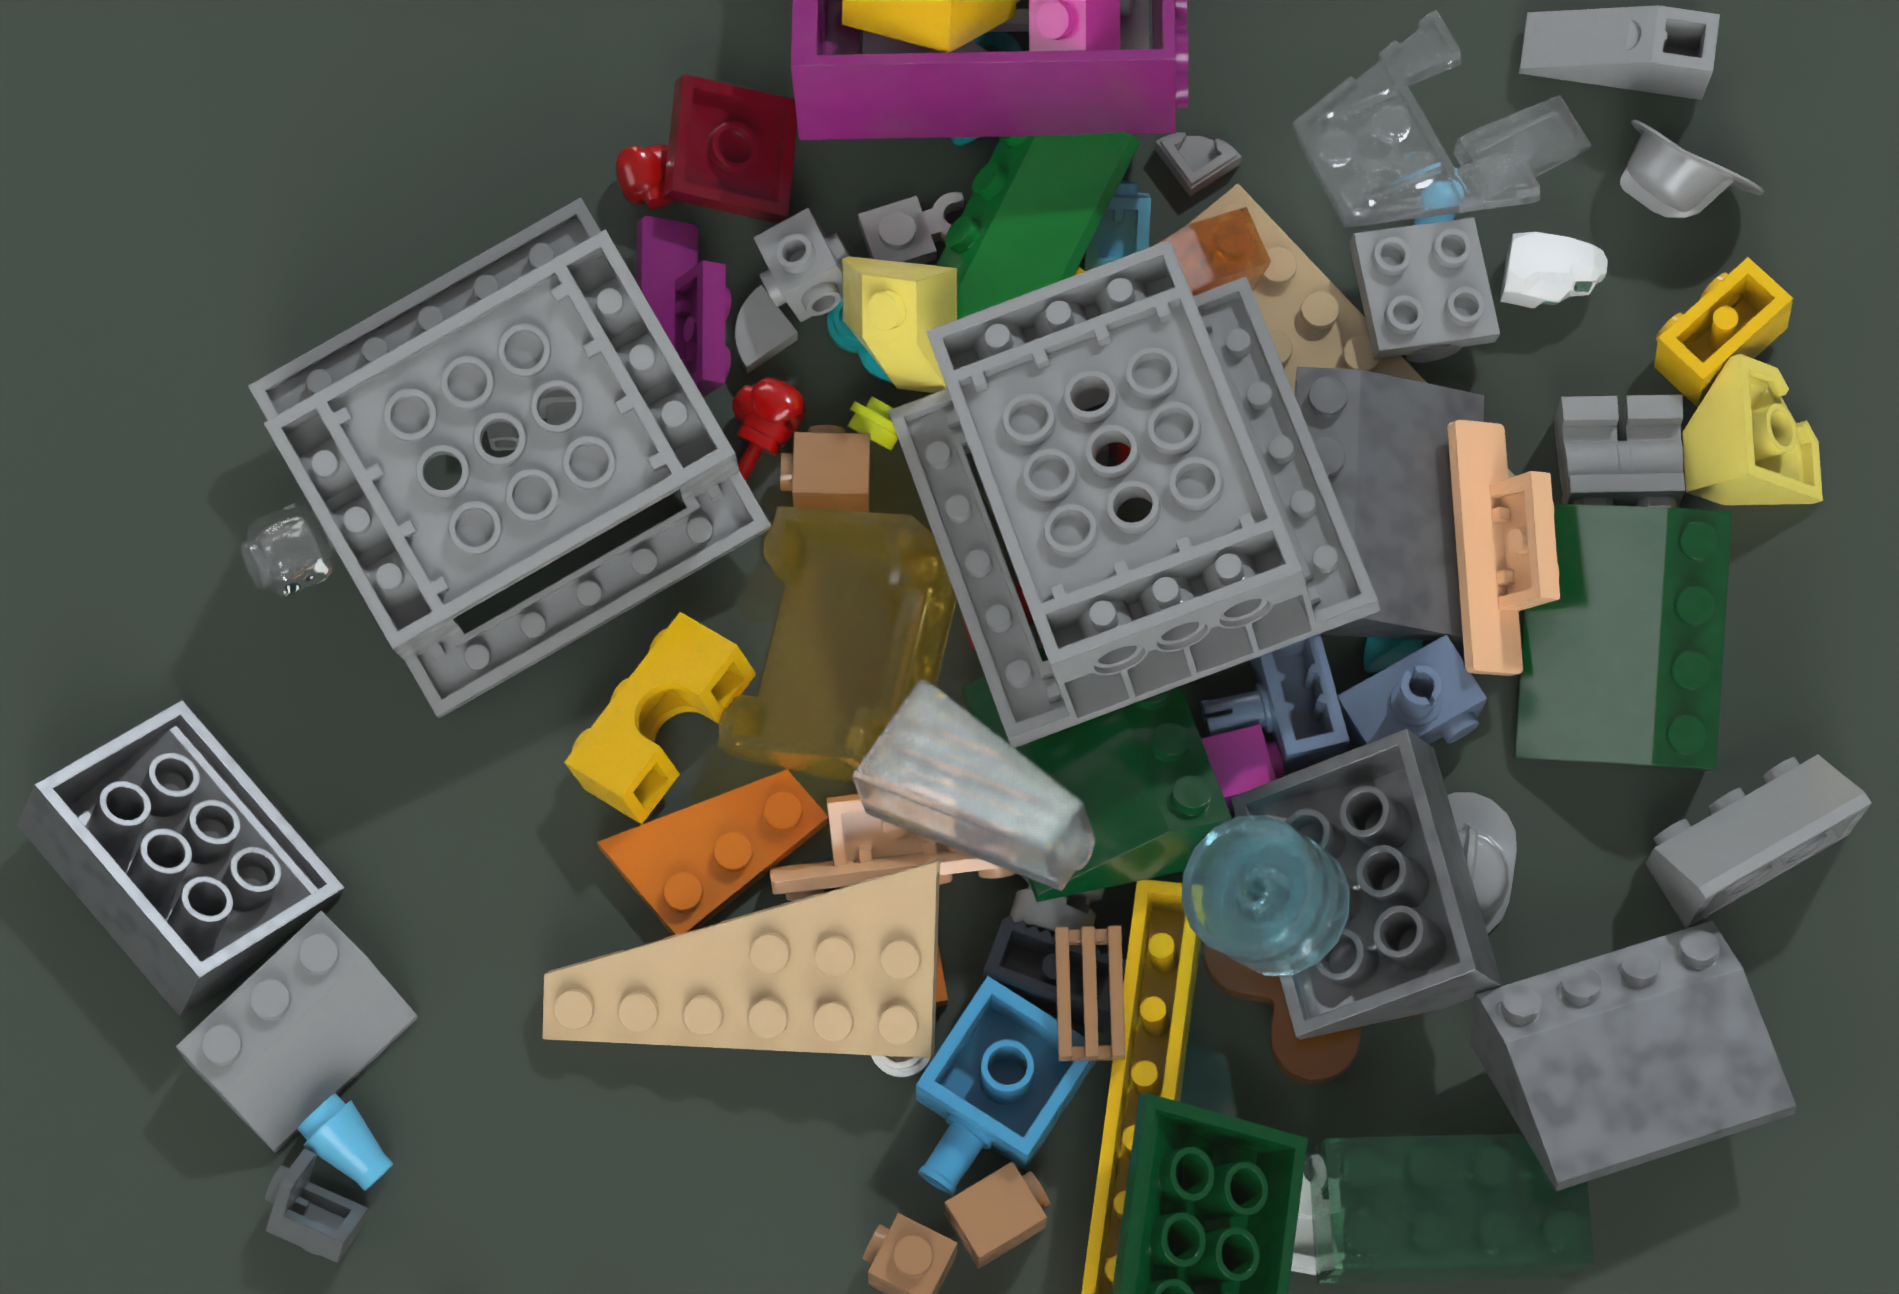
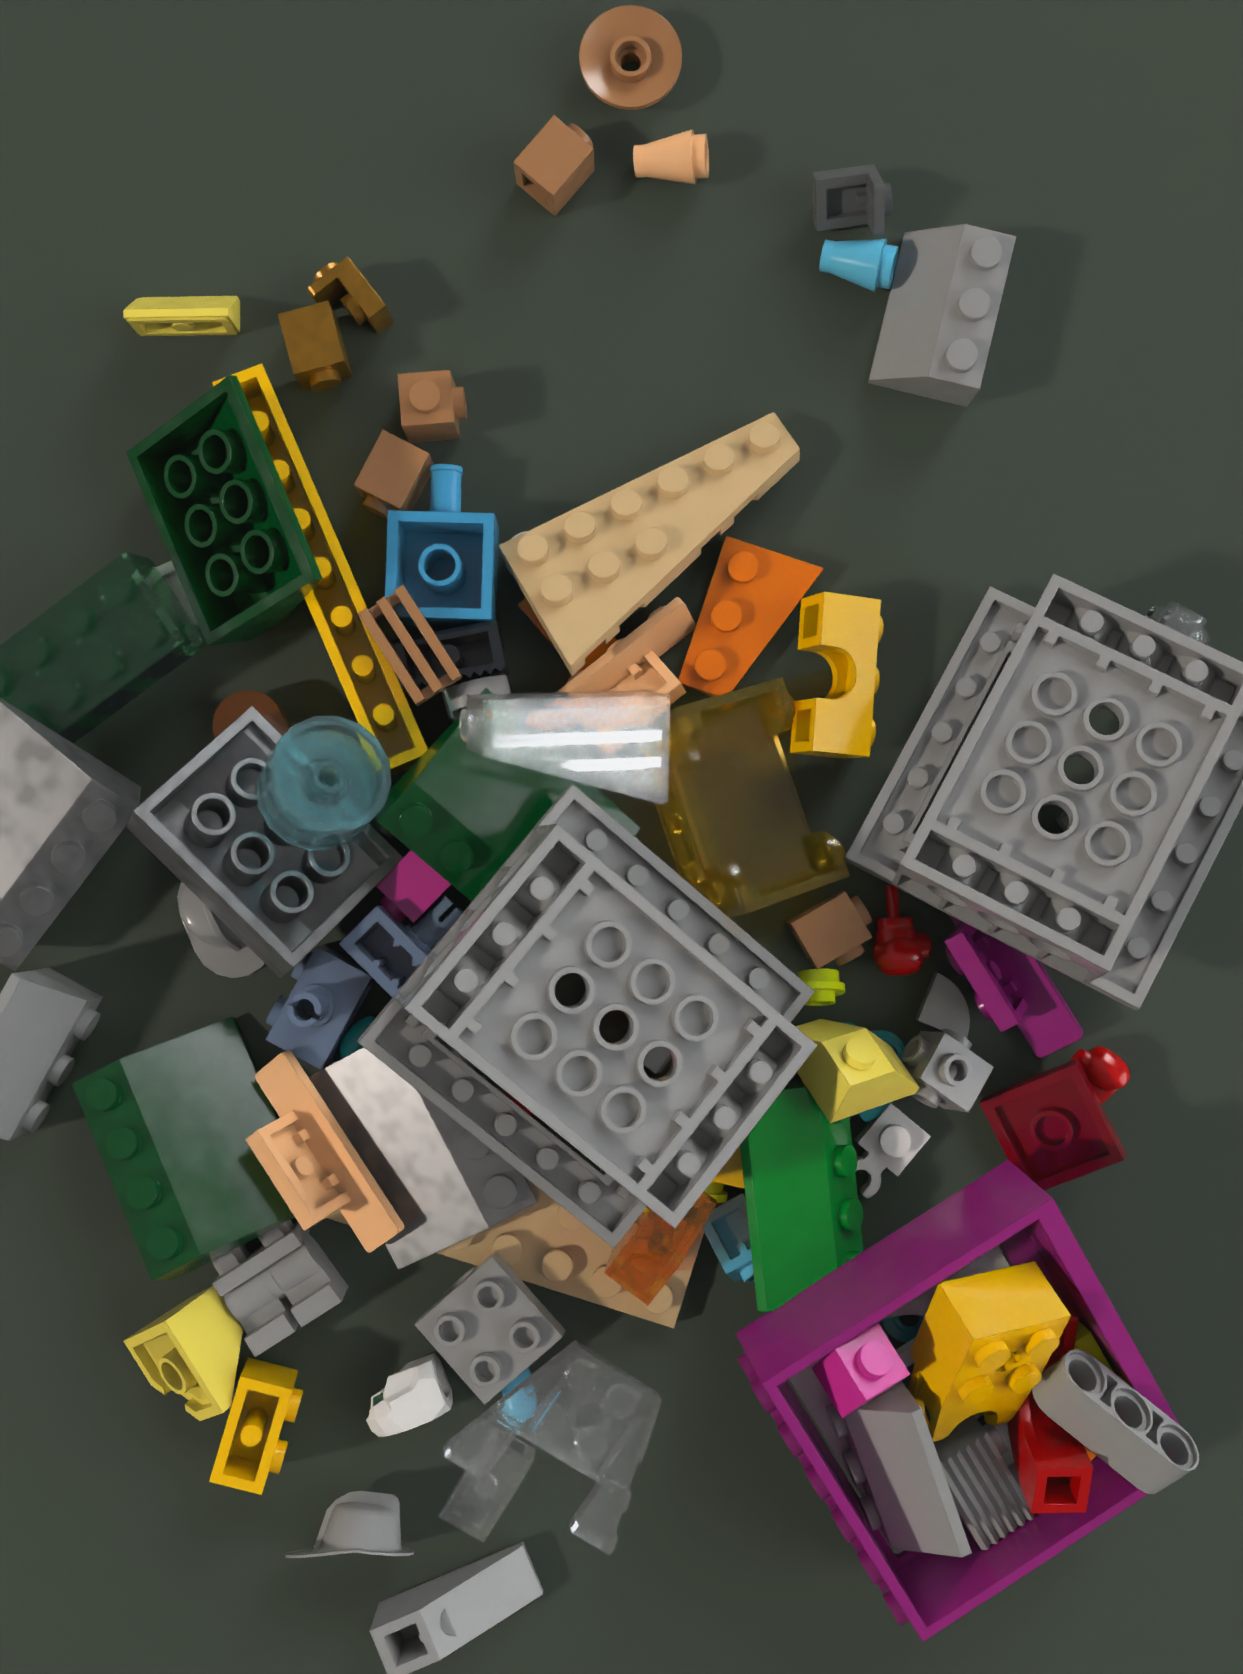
camera: 150 degrees right, 15 degrees up
(177, 855) = (1102, 385): flat silver slope -> none
(1196, 159) = (714, 1329): light grey tile -> none

